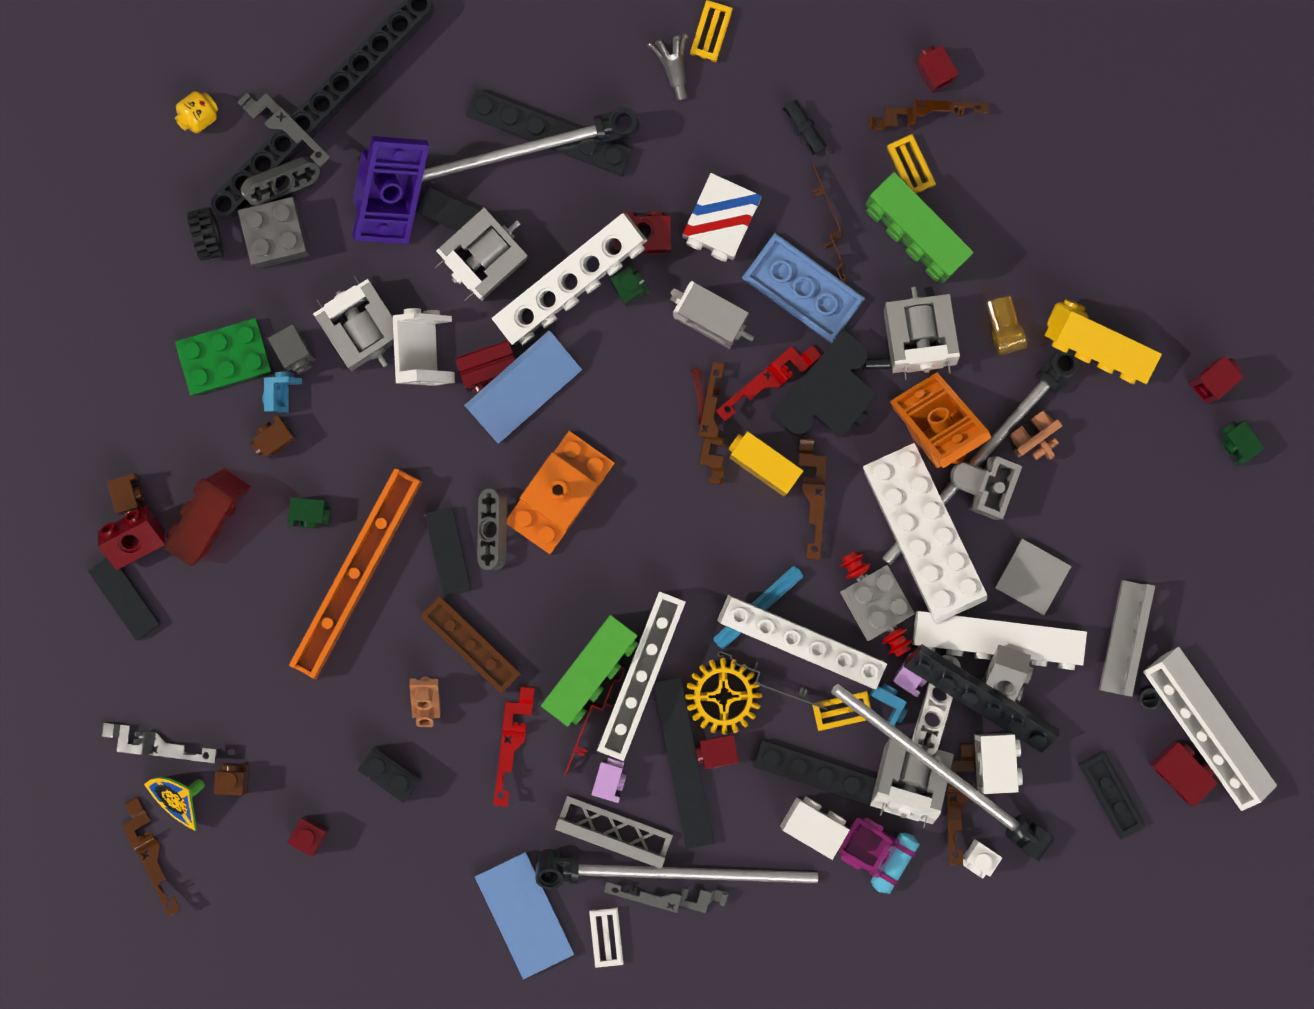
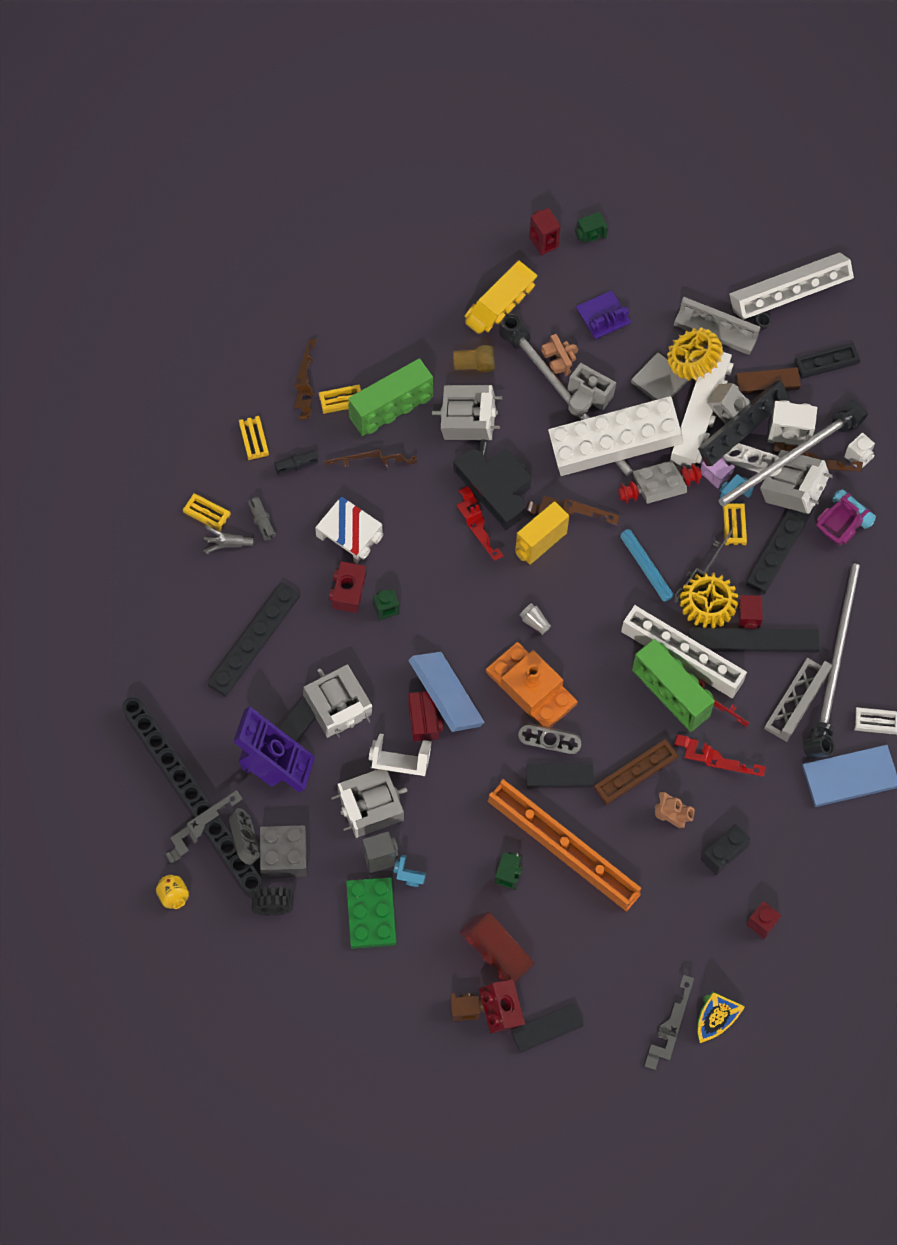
camera: 75 degrees left, 20 degrees down
(151, 844) = (750, 1047): reddish brown piece -> none
(231, 780) = (709, 970): reddish brown brick -> none
(272, 438) = (444, 885): reddish brown brick -> none
(510, 318) = (390, 691): white brick -> none
(604, 128) = (263, 593): flat silver piece -> none
(609, 780) = (758, 692): lavender brick -> none
(650, 479) = (534, 618): none -> light grey cone
(696, 373) = (497, 576): clear red hinge -> none
(704, 898) = (856, 664): dark grey piece -> none
(710, 314) = (422, 547): light grey piece -> none
(711, 436) = (511, 568): reddish brown piece -> none
(714, 102) = (261, 518): none -> dark grey pin
(801, 642) = (678, 536): white brick -> none
(803, 288) = (414, 488): medium blue tile -> none
(814, 827) = (818, 553): white brick -> none
(850, 54) = (250, 422): none -> yellow tile
(936, 68) = (275, 366): dark red brick -> none
(940, 421) = (537, 408): orange brick -> none
(1061, 714) = (760, 380): none -> reddish brown tile
(1083, 612) = (697, 359): none -> yellow gear
(1113, 484) = (603, 314): none -> dark purple hinge
(1184, 773) = (820, 310): dark red brick -> none

